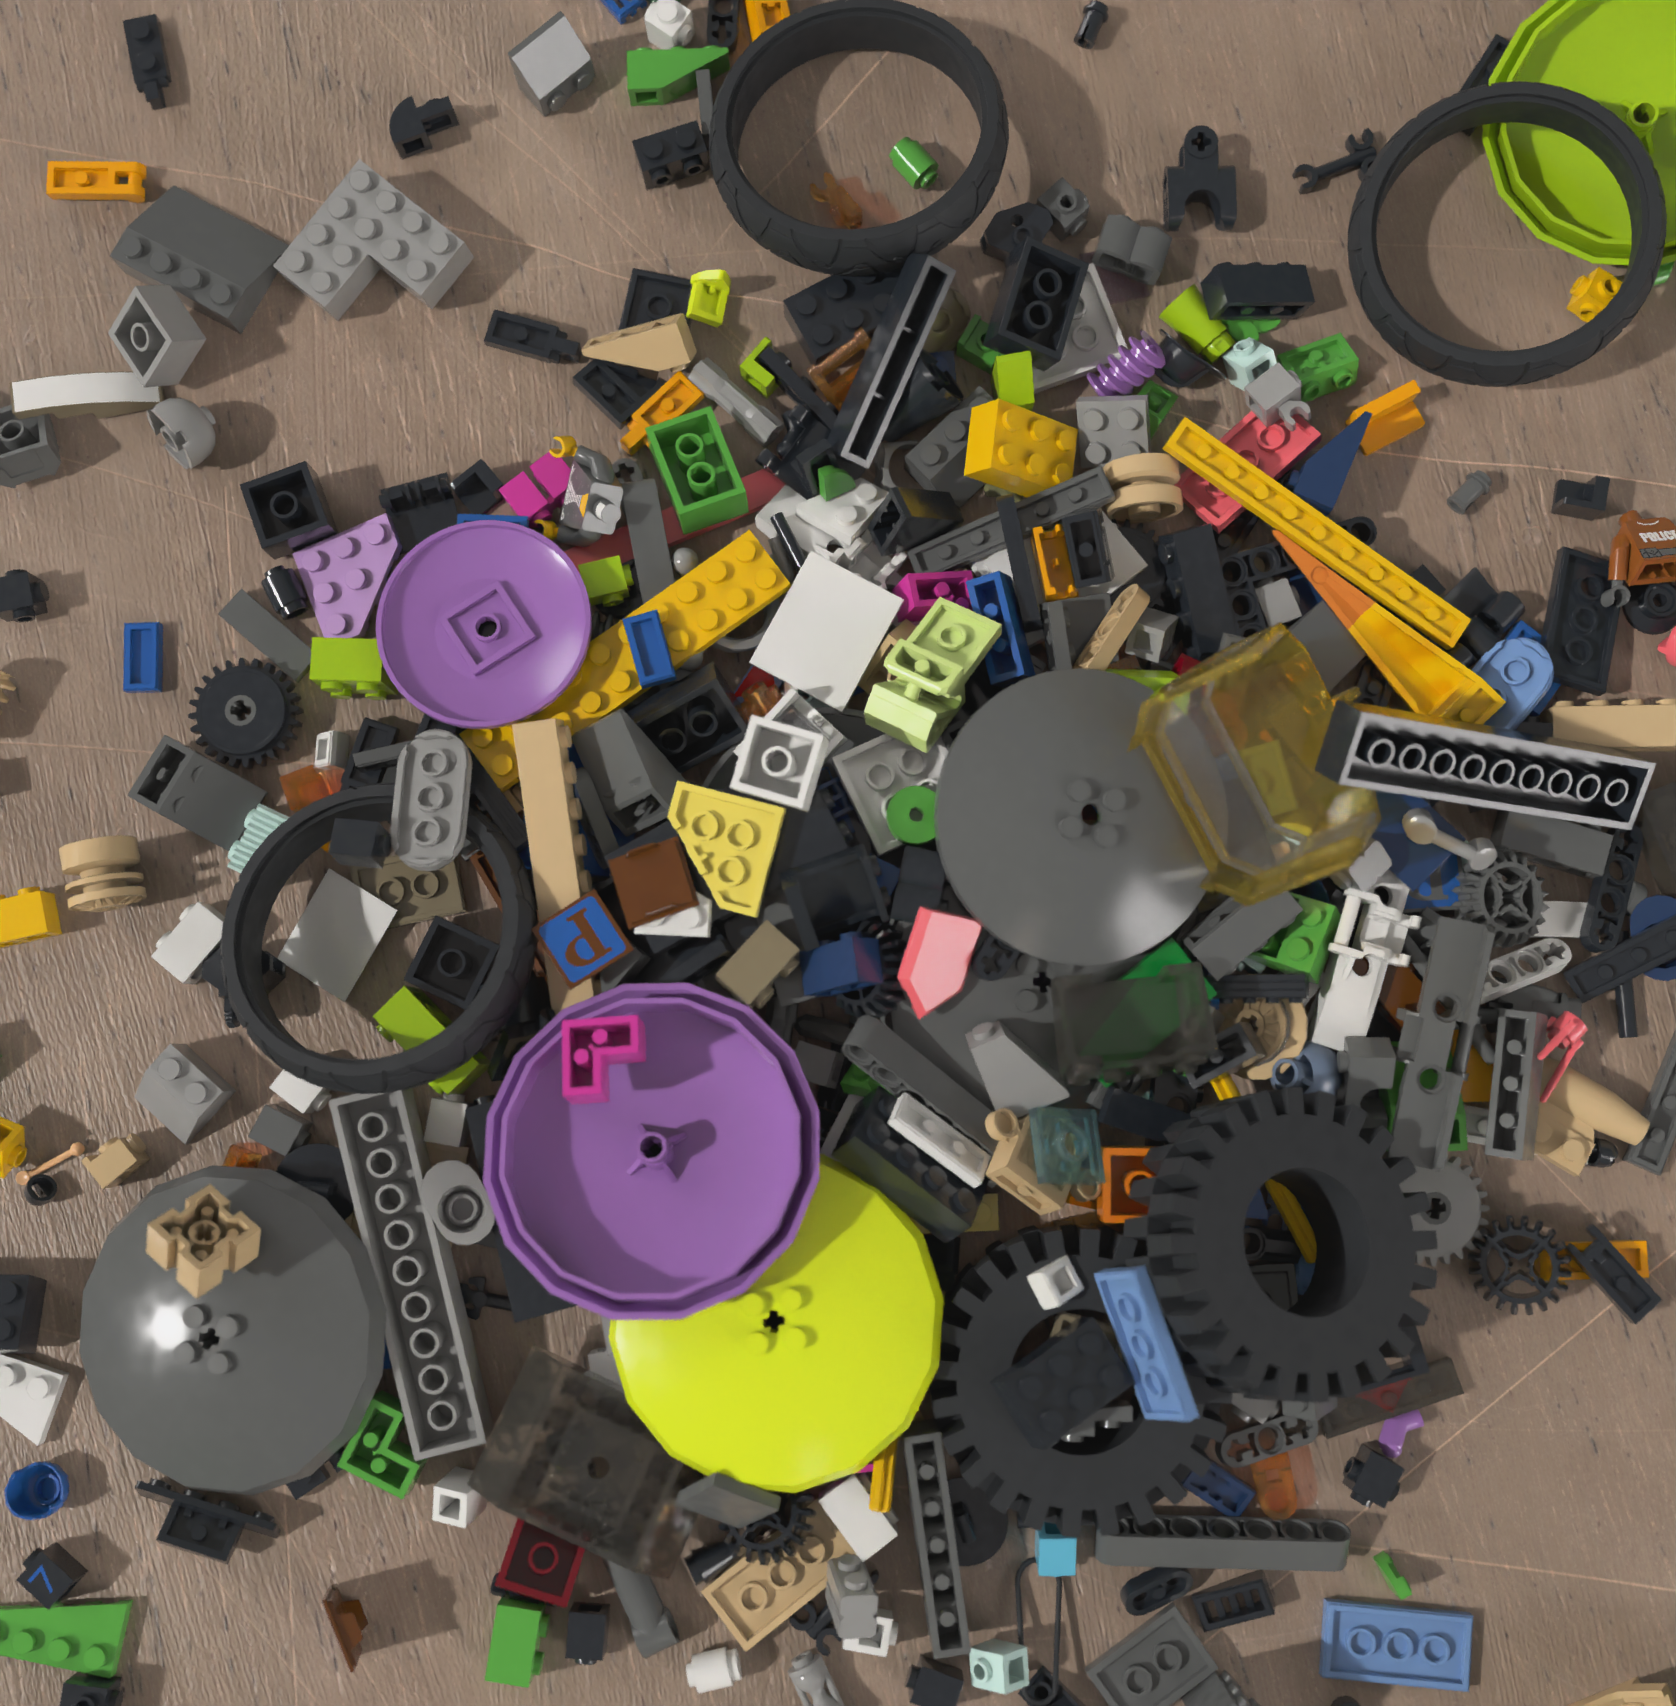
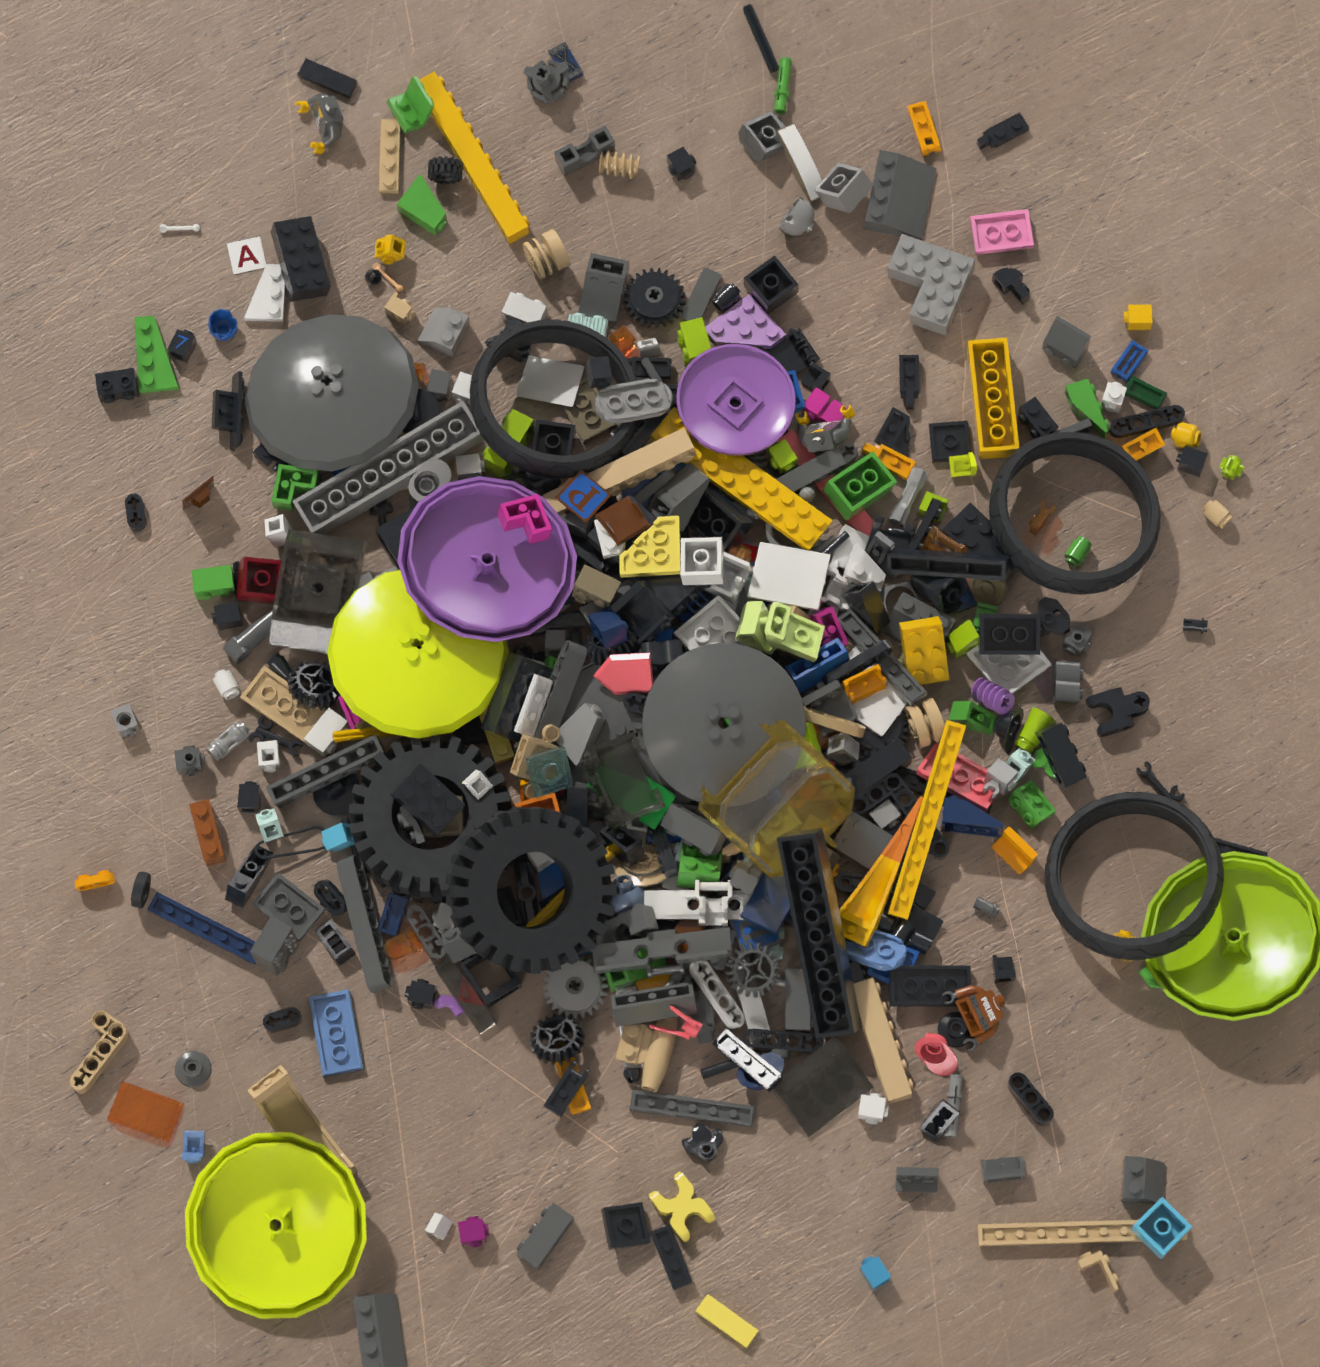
camera: 75 degrees right, 10 degrees down
(143, 657) = (668, 237): blue tile -> none
(203, 1240) = (376, 360): tan brick -> none
(323, 113) = (1001, 232): none -> bright pink plate
(609, 212) = (992, 398): none -> yellow brick
(649, 649) = (748, 487): blue tile -> none
(650, 345) = (923, 440): tan slope -> none
(728, 1500) = (319, 654): dark grey tile -> none
(834, 482) = (875, 559): bright green tile -> none
(851, 1597) = (286, 735): light grey brick -> none
(898, 819) = (698, 635): bright green piece -> none
(1088, 547) = (877, 695): black brick -> none
(1112, 428) = (954, 697): light grey plate -> none
(1146, 1344) = (459, 829): medium blue tile -> none
(1396, 1583) = (372, 1019): bright green tile -> none
(1422, 830) = (770, 942): light grey bar -> none

